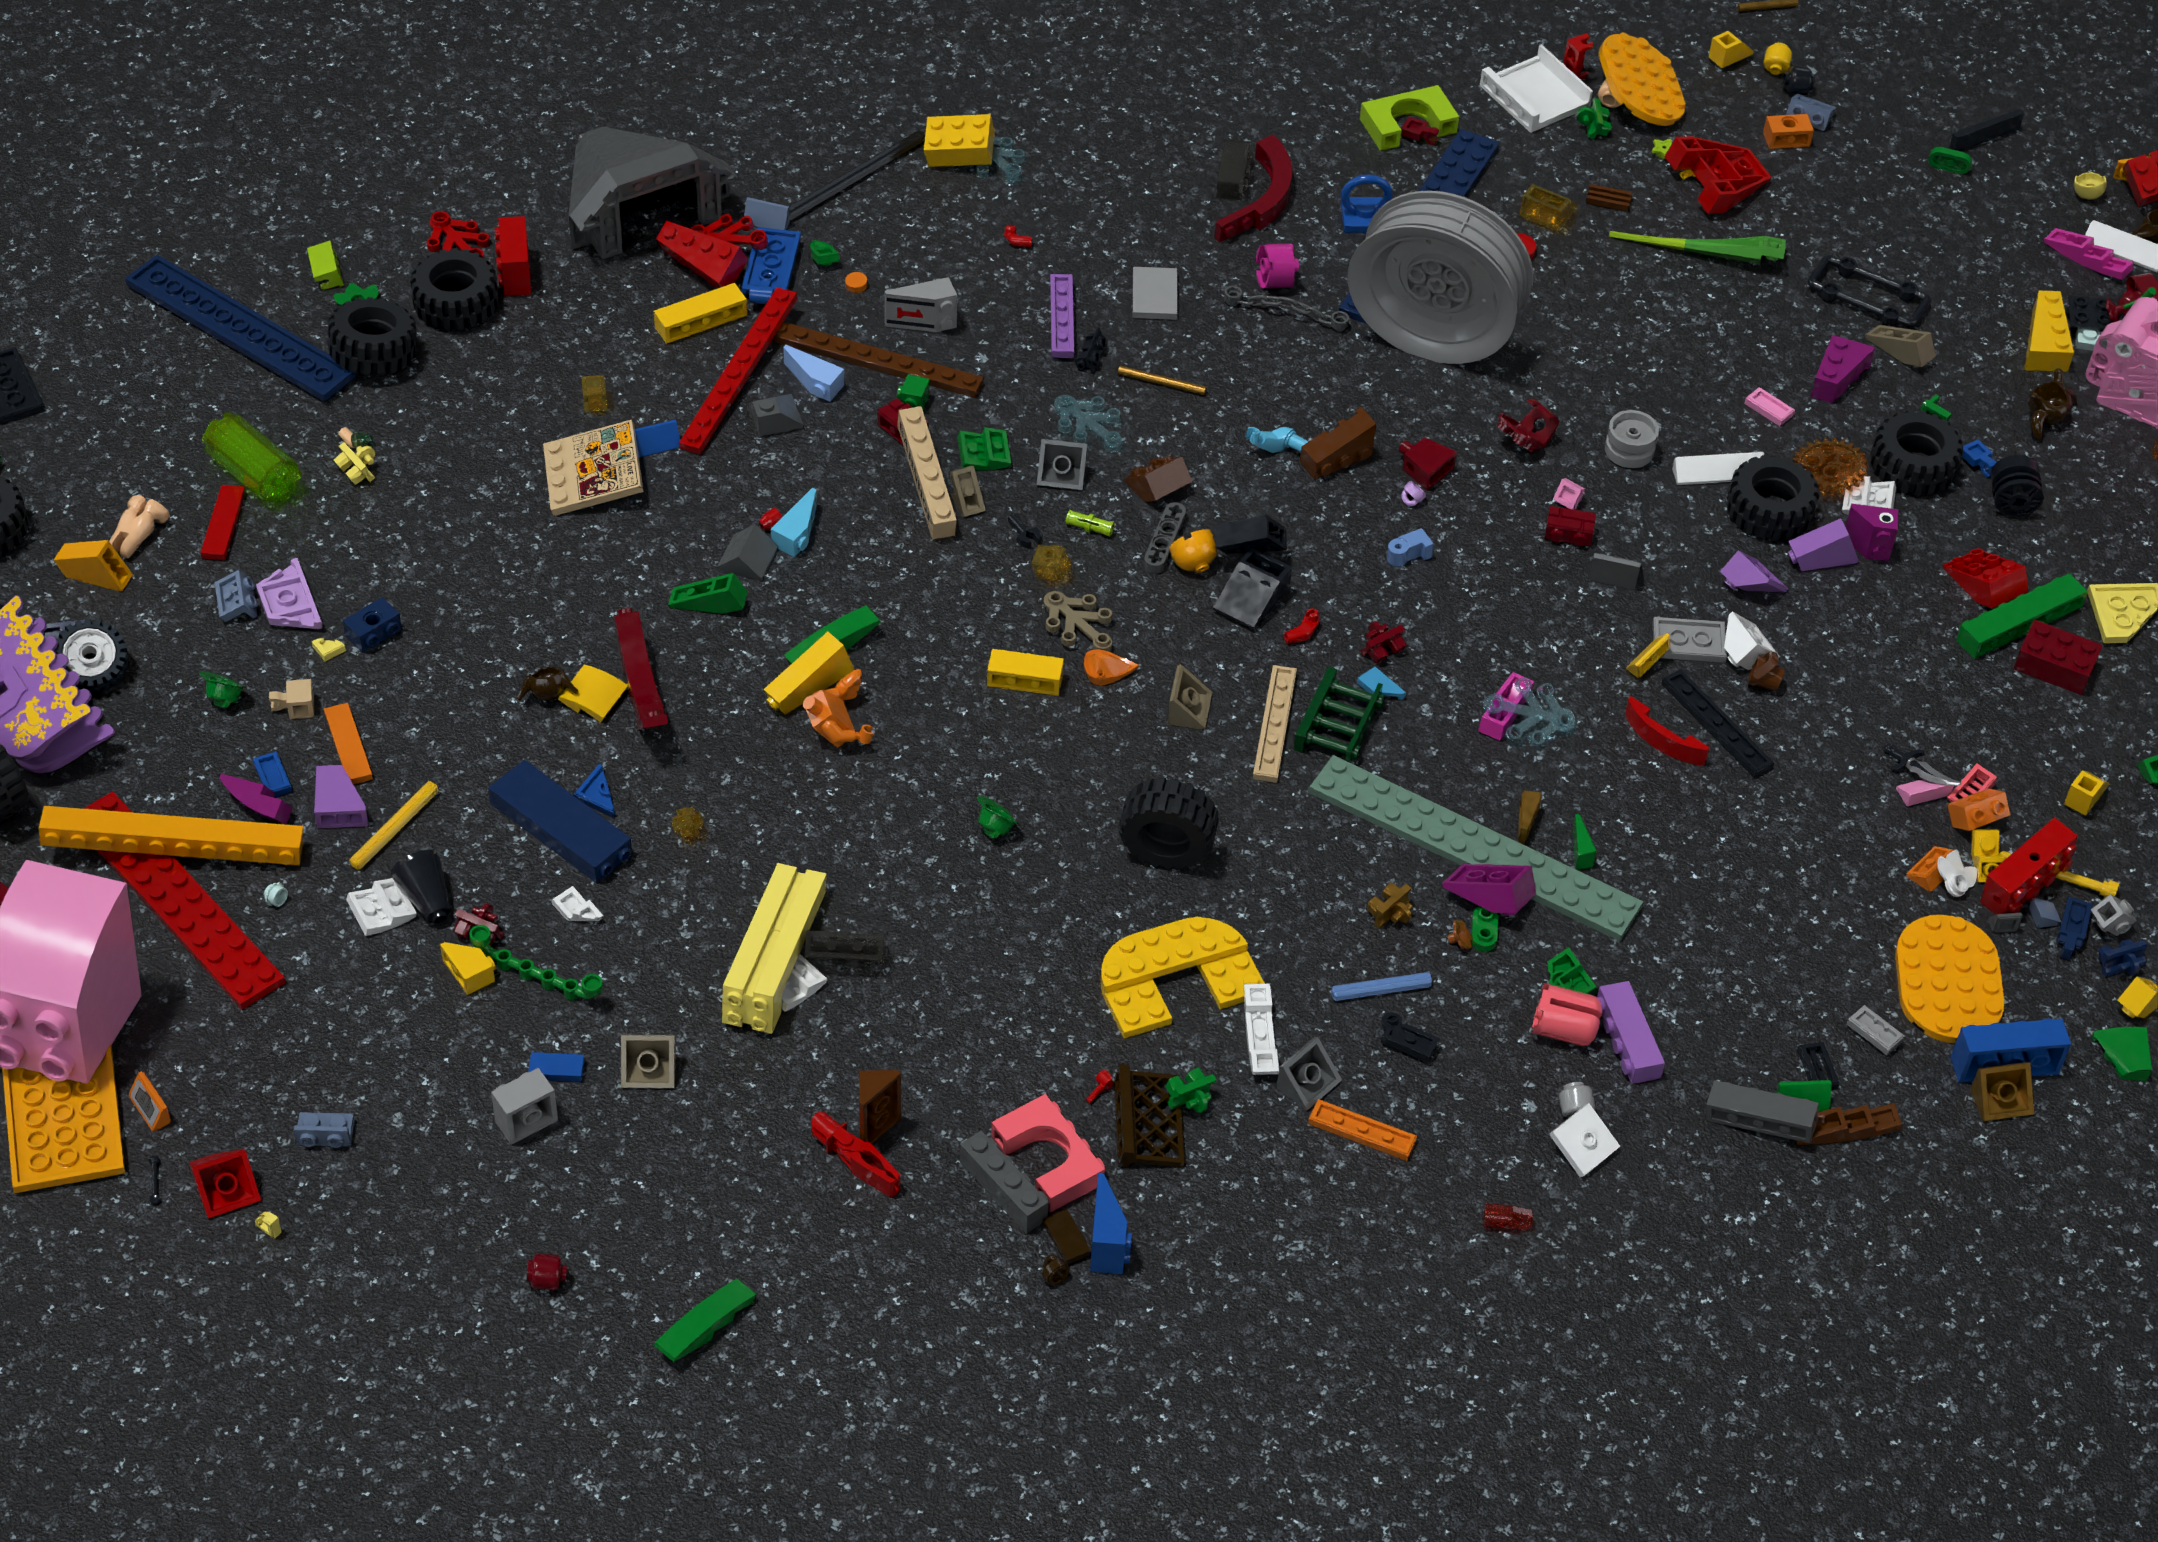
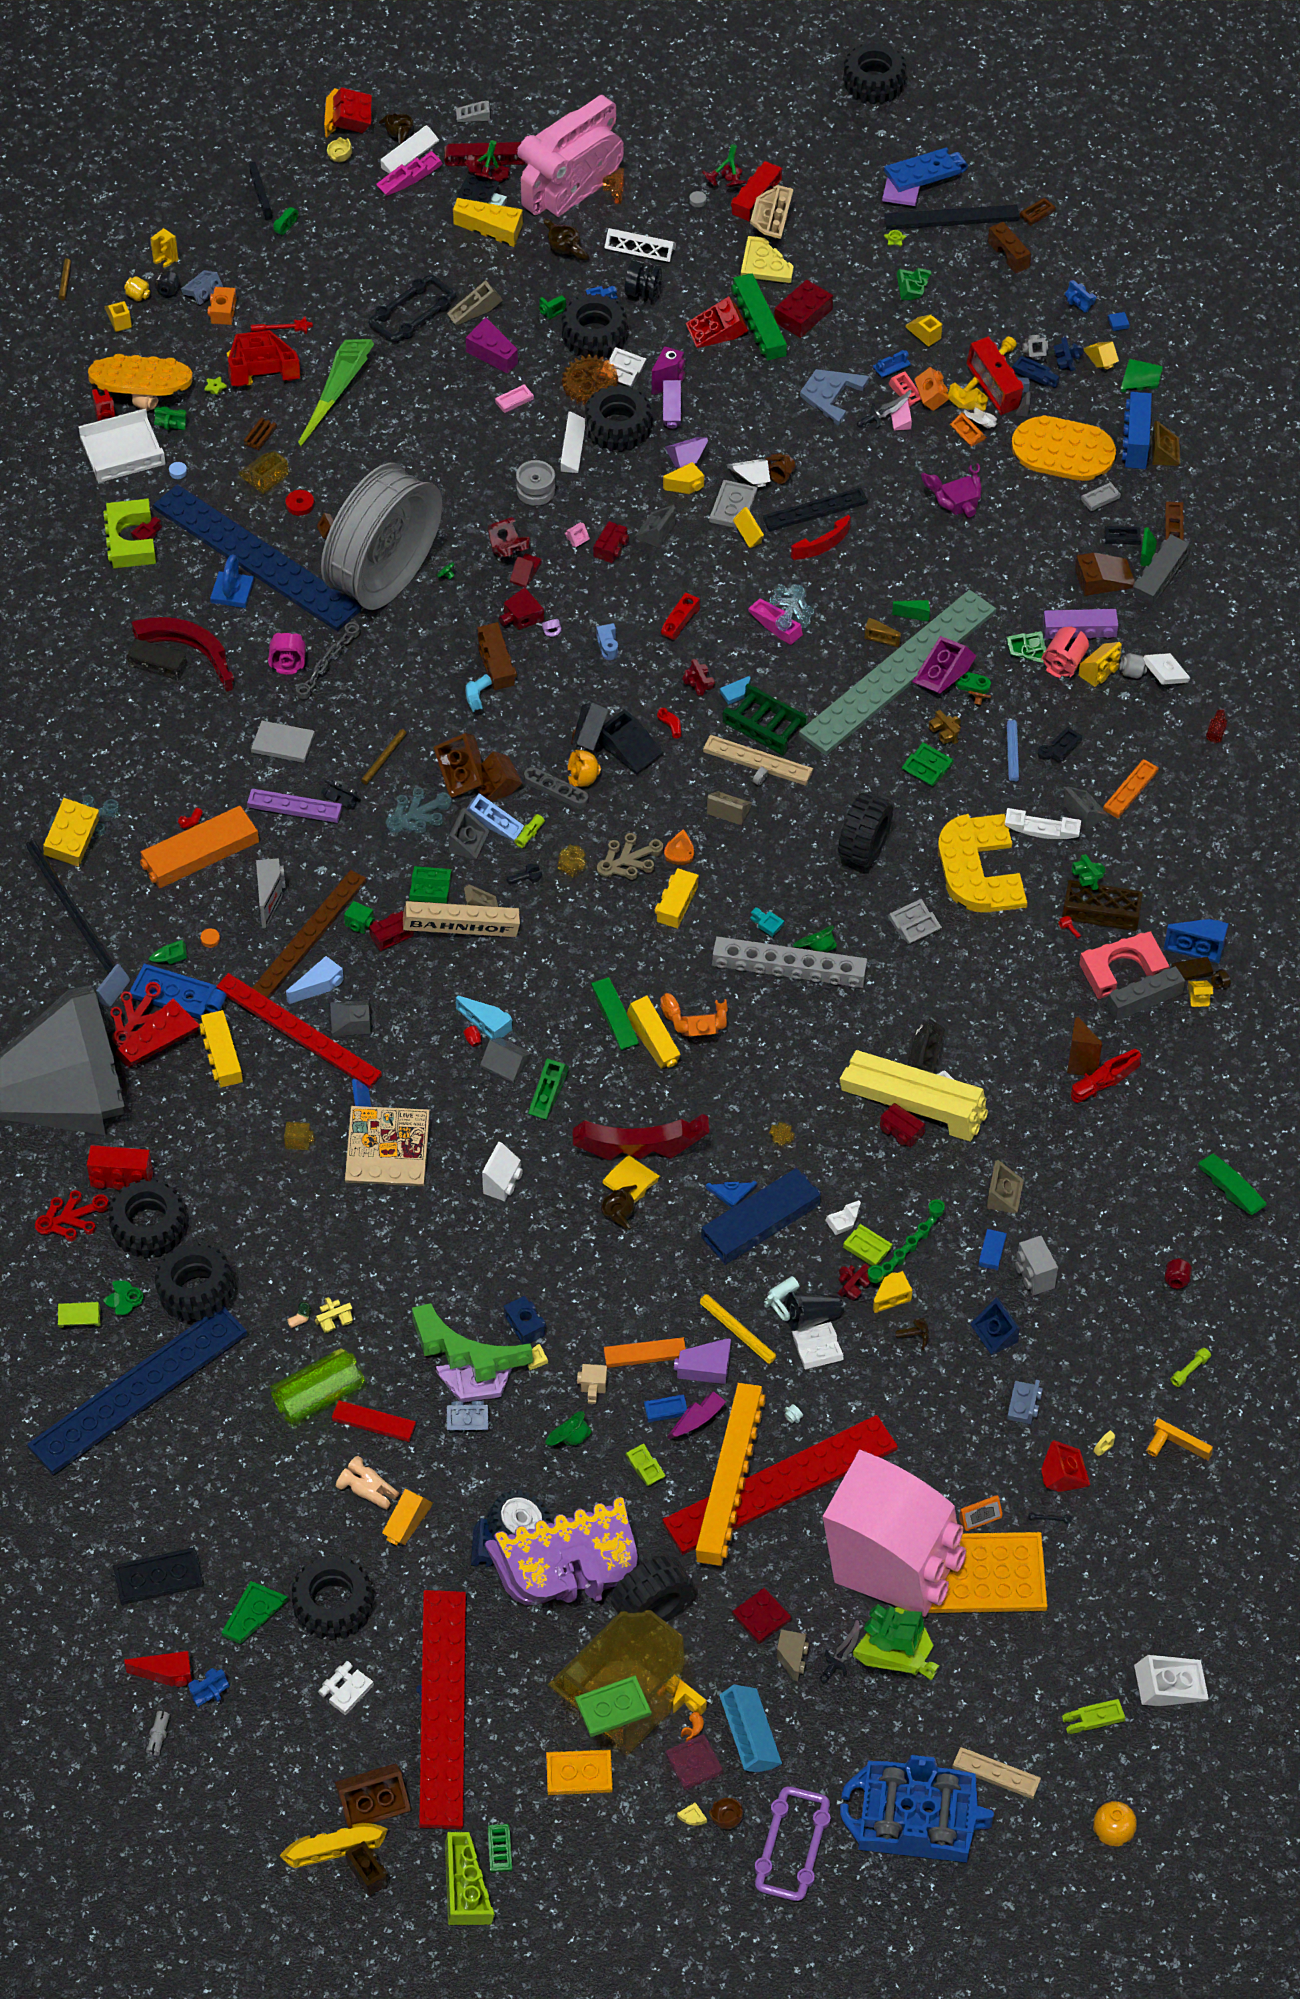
camera: 75 degrees left, 5 degrees up
(192, 766) = (645, 1465): none -> lime slope
(290, 1292) = (1167, 1431): none -> light orange piece
(328, 551) = (460, 1351): none -> bright green arch
(383, 1296) = (1201, 1356): none -> lime bar
(412, 996) = (921, 1329): none -> dark brown plant
(431, 1084) = (996, 1327): none -> dark blue slope
(450, 856) = (778, 1296): none -> light aqua piece
(535, 934) = (867, 1245): none -> lime plate
(571, 566) = (501, 1173): none -> white slope
(723, 944) = (902, 1125): none -> dark red brick
(955, 797) = (775, 959): none -> light grey brick
(977, 248) = (199, 847): none -> orange brick
(1014, 767) = (767, 922): none -> teal plate
(1026, 1245) = (1199, 993): none -> yellow slope
(1060, 917) = (914, 921): none -> light grey slope
(1096, 482) = (494, 817): none -> light blue slope
(1165, 436) = (460, 764): none -> reddish brown slope
(1245, 725) = (760, 776): none -> light grey tile
(1325, 898) = (927, 764): none -> green slope
(1462, 387) = (447, 571): none -> green plant
(1475, 609) = (680, 616): none -> red leg
(1491, 457) = (525, 570): none -> dark red slope
(1522, 141) = (177, 470): none -> light blue tile
(1561, 1060) = (1101, 663): none -> yellow slope
(1705, 582) = (684, 480): none -> yellow slope
(1733, 1047) = (1103, 573): none -> reddish brown slope
(1794, 205) = (298, 325): none -> red piece
(1801, 864) = (957, 495): none -> magenta torso
(1846, 63) = (164, 248): none -> yellow hinge
(1933, 704) = (825, 387): none -> sand blue wing
(2011, 769) = (892, 364): none -> blue hinge
(2093, 477) = (642, 239): none -> white fence

